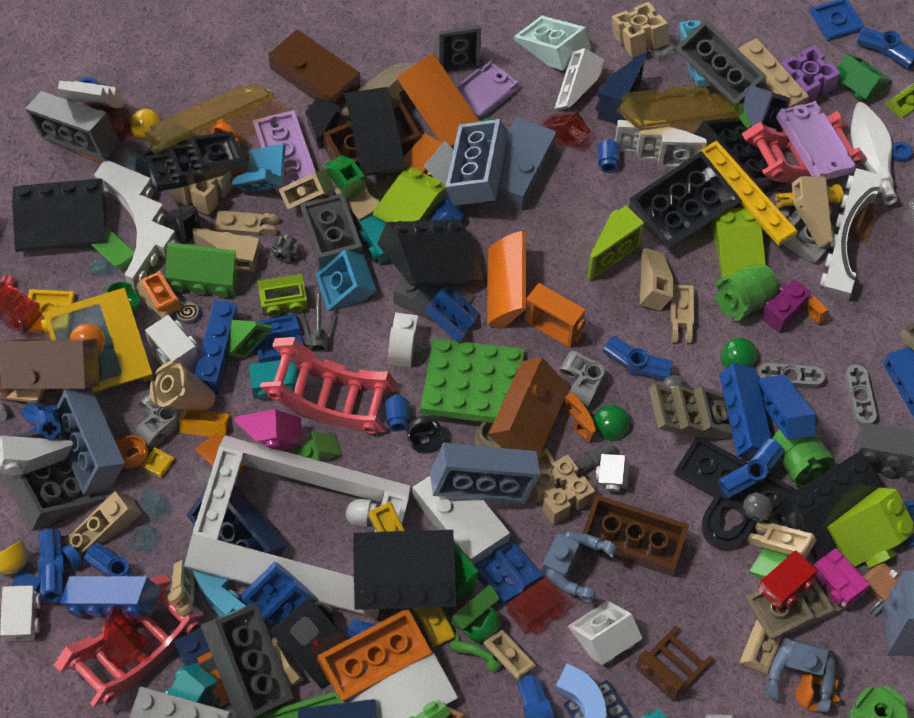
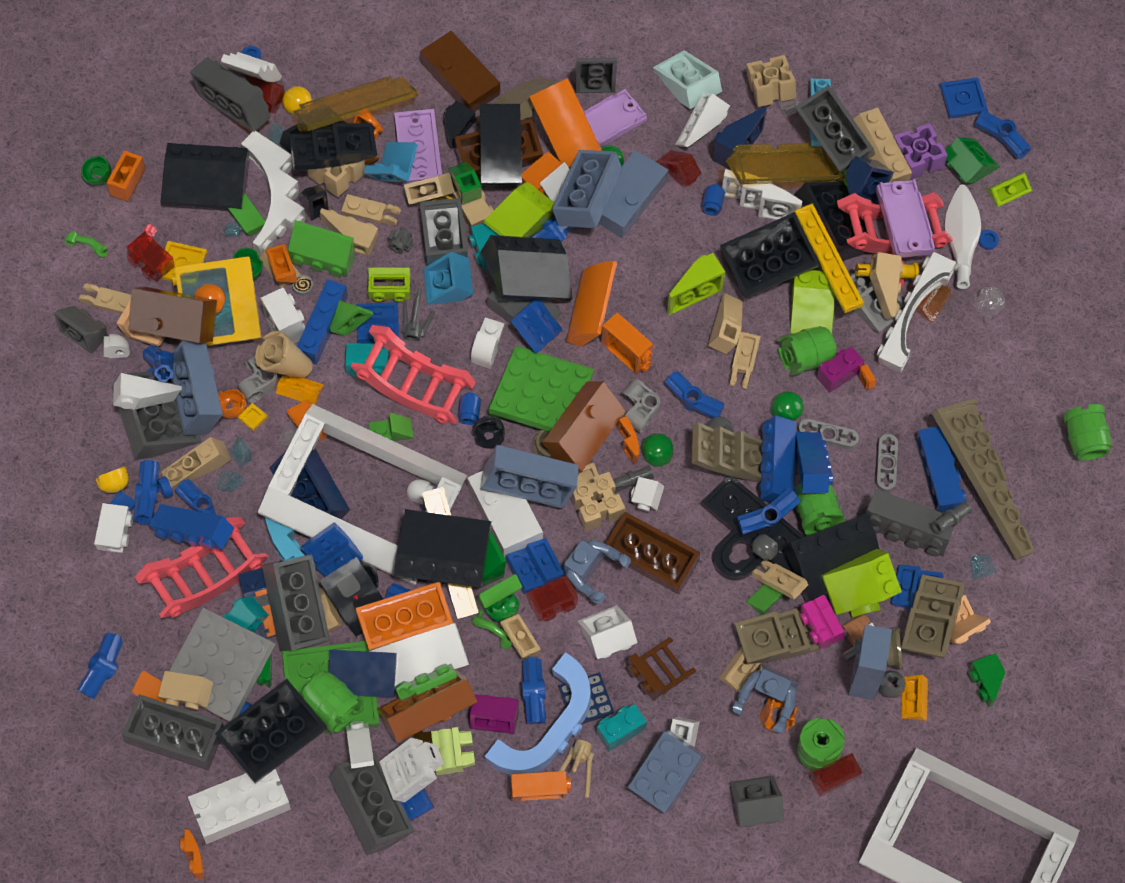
camera: 10 degrees right, 5 degrees up
(121, 639) = (194, 565): clear red slope -> none
(182, 589) = (253, 531): tan hinge -> none
(273, 428) = (356, 405): dark pink slope -> none
(787, 581) = (773, 615): red brick -> none

